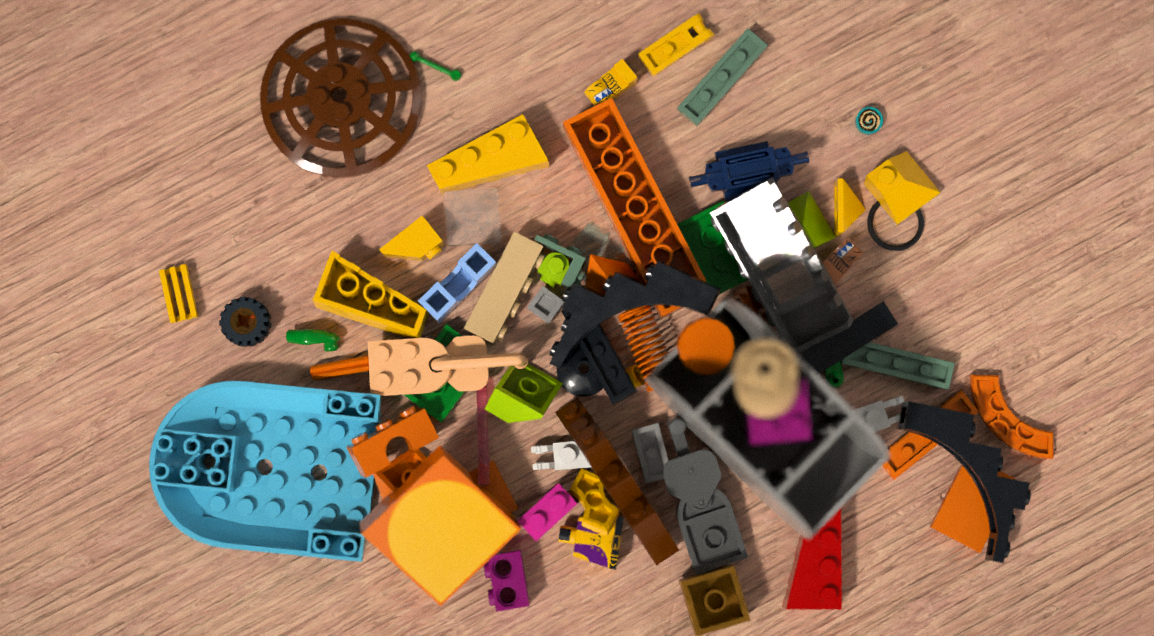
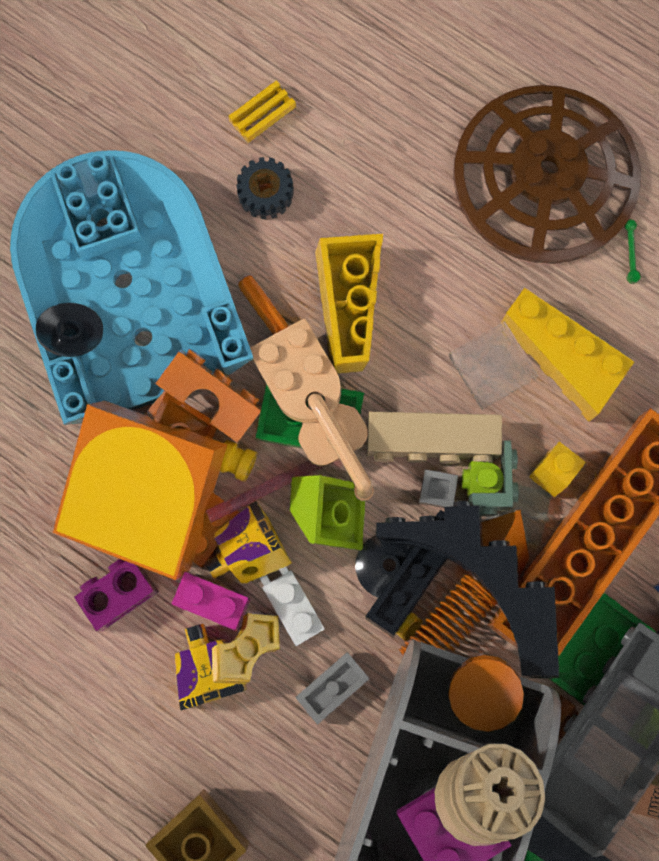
camera: 65 degrees right, 5 degrees down
(281, 519) = (69, 319): none -> black dish
(313, 336) = (284, 264): green arm -> none
(414, 243) = (434, 317): yellow slope -> none
(452, 442) = (238, 461): none -> yellow wheel
(466, 276) = (431, 390): light blue arch -> none
(521, 465) = (248, 547): none -> torso
(573, 211) = (557, 469): none -> yellow brick
(617, 481) = (280, 665): reddish brown arch -> none
(711, 526) = (296, 778): dark grey plate -> none

